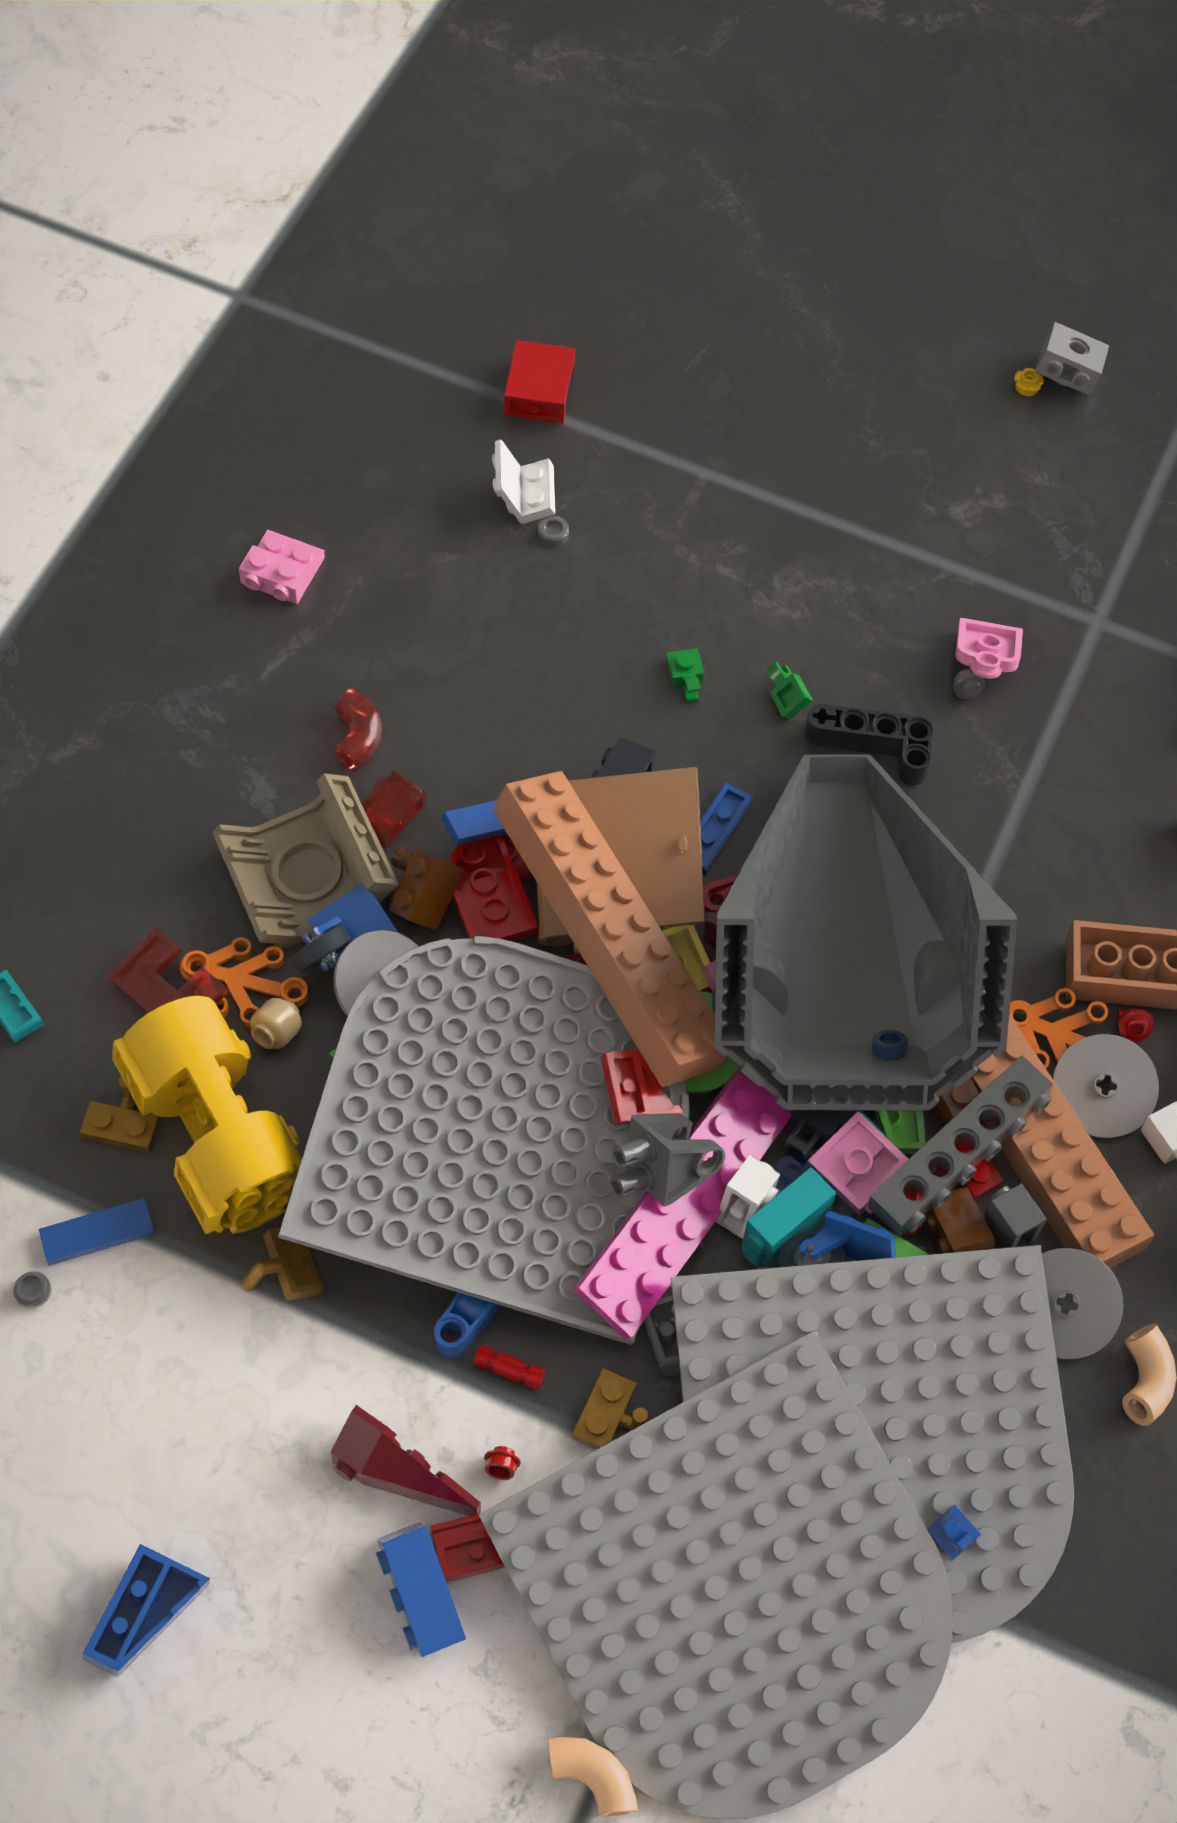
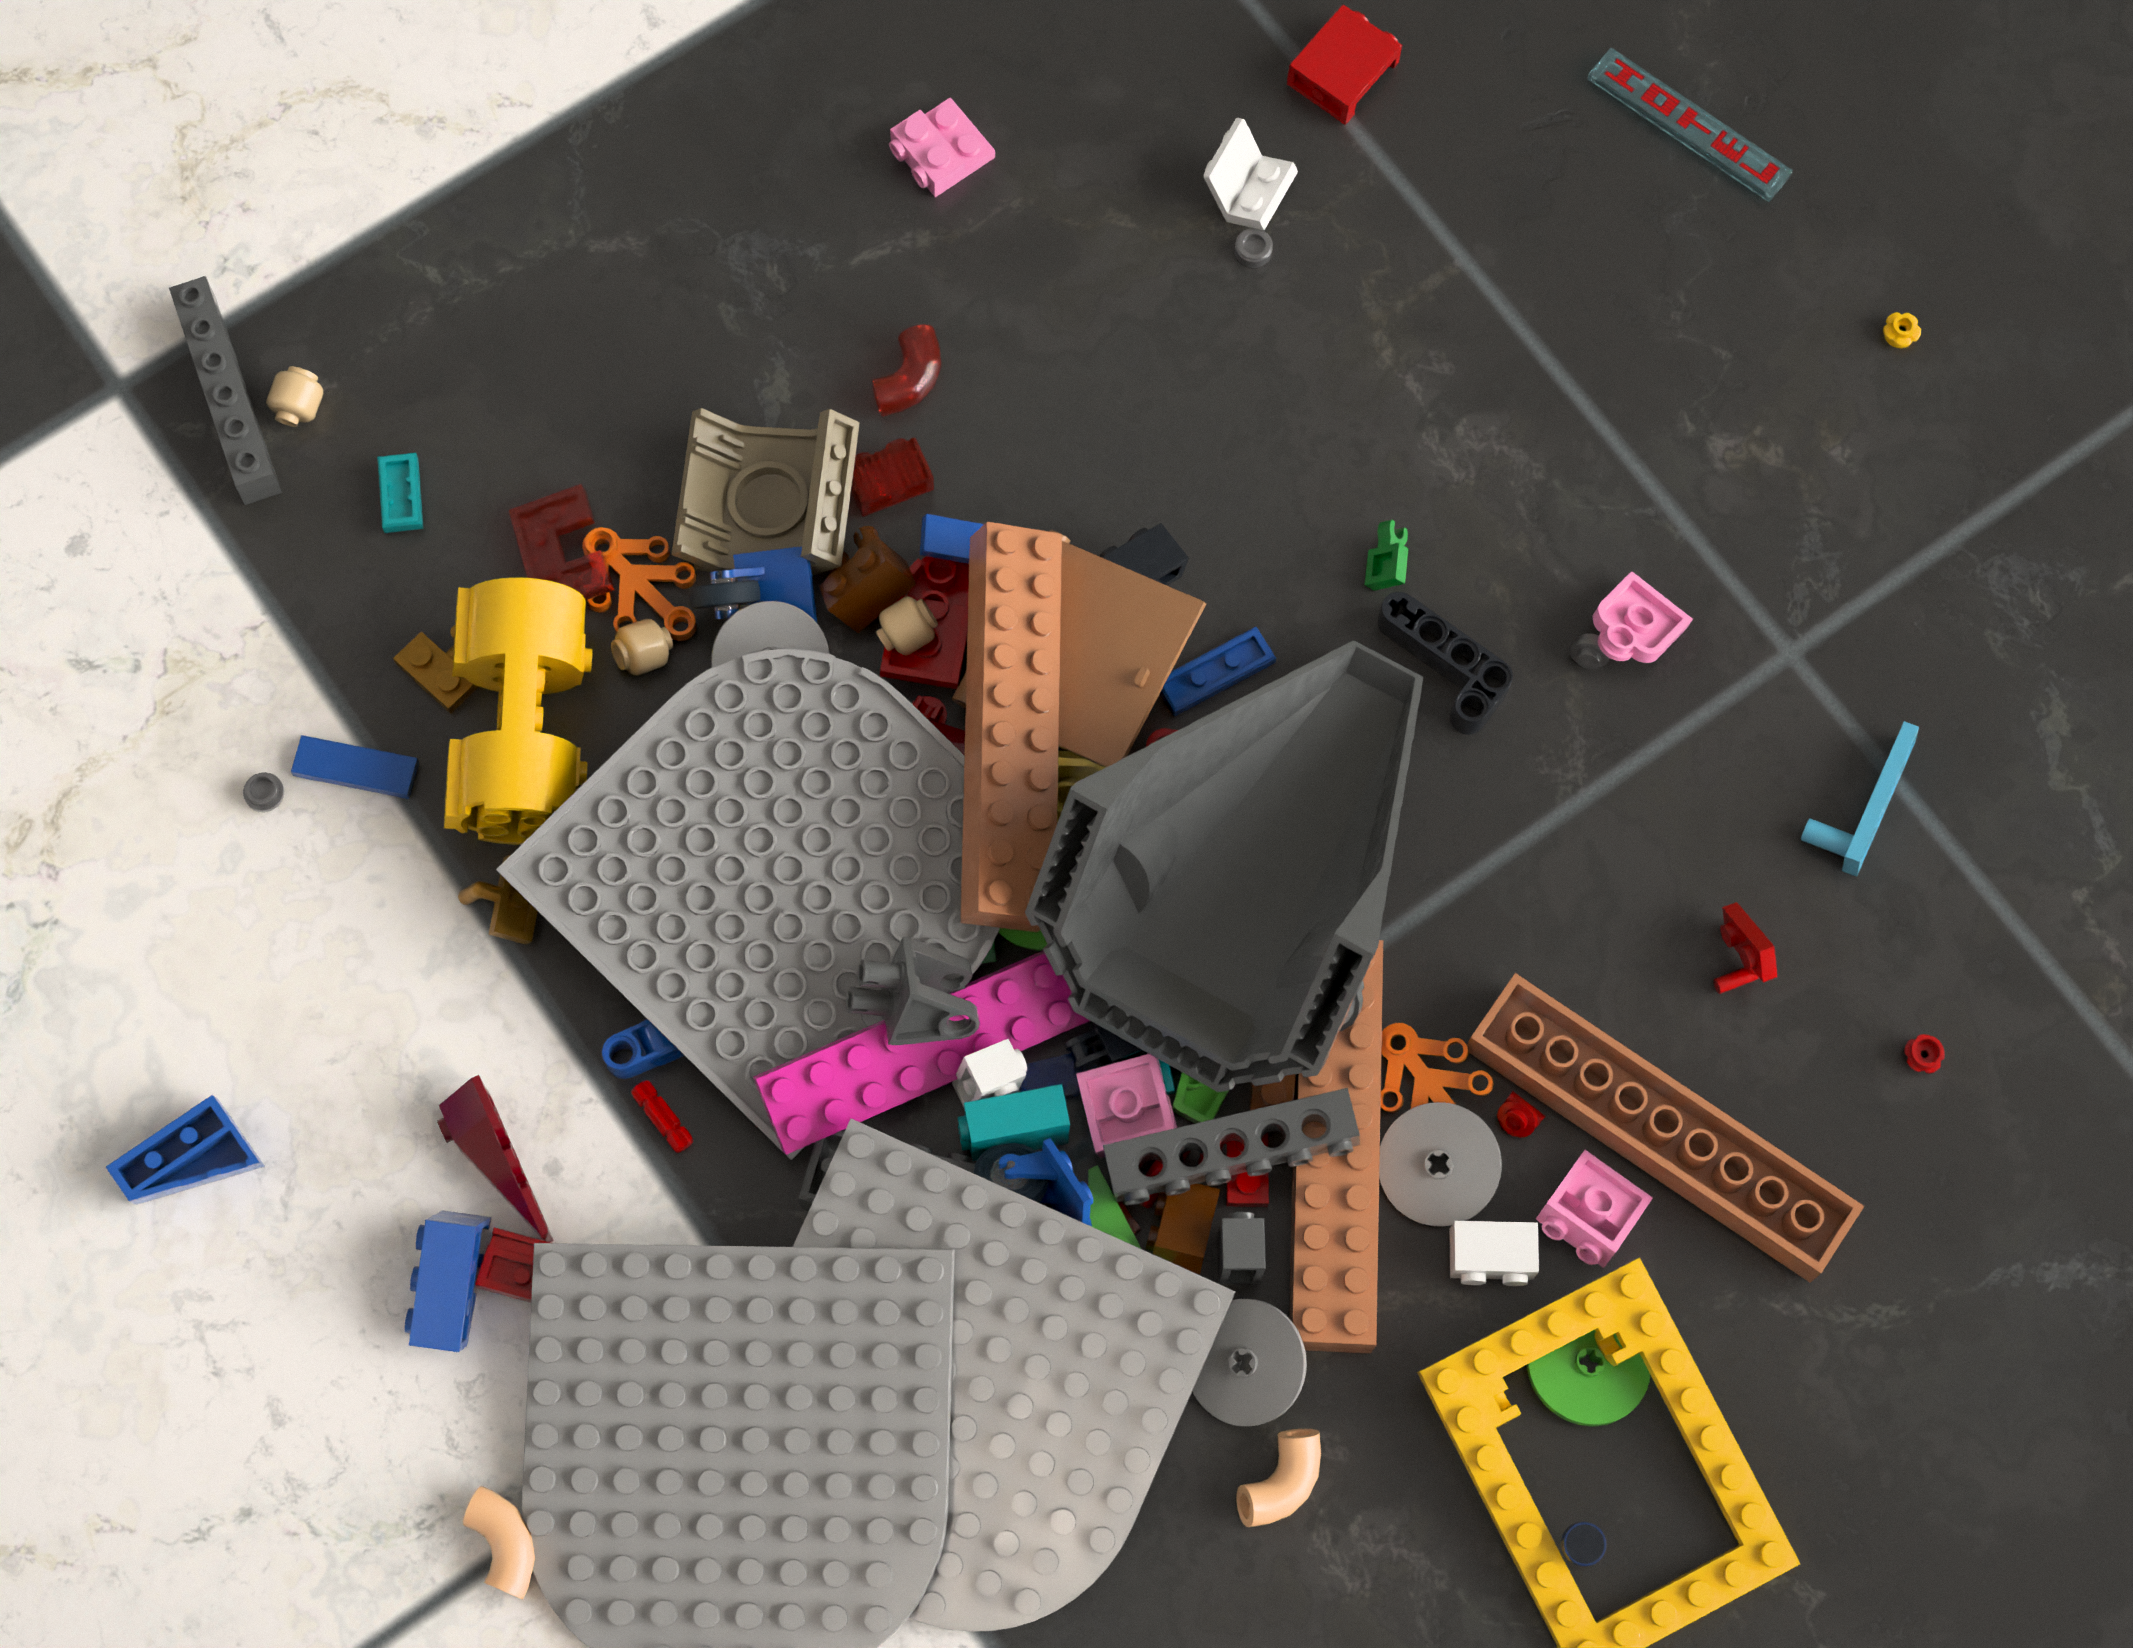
camera: 30 degrees right, 10 degrees up
(477, 900) = (906, 626): none -> tan head
(501, 1463) = (597, 1205): red plate -> none
(607, 1410) = (729, 1211): pearl gold plate -> none
(633, 1087) = (934, 909): red wing -> none
(686, 669) = (1295, 479): green plate -> none
(800, 317) = (1690, 124): none -> clear light blue tile
(889, 1044) = (1221, 1003): dark blue tile -> none
(953, 1532) = (973, 1519): blue tile -> none
(1072, 358) = (1964, 328): light grey brick -> none

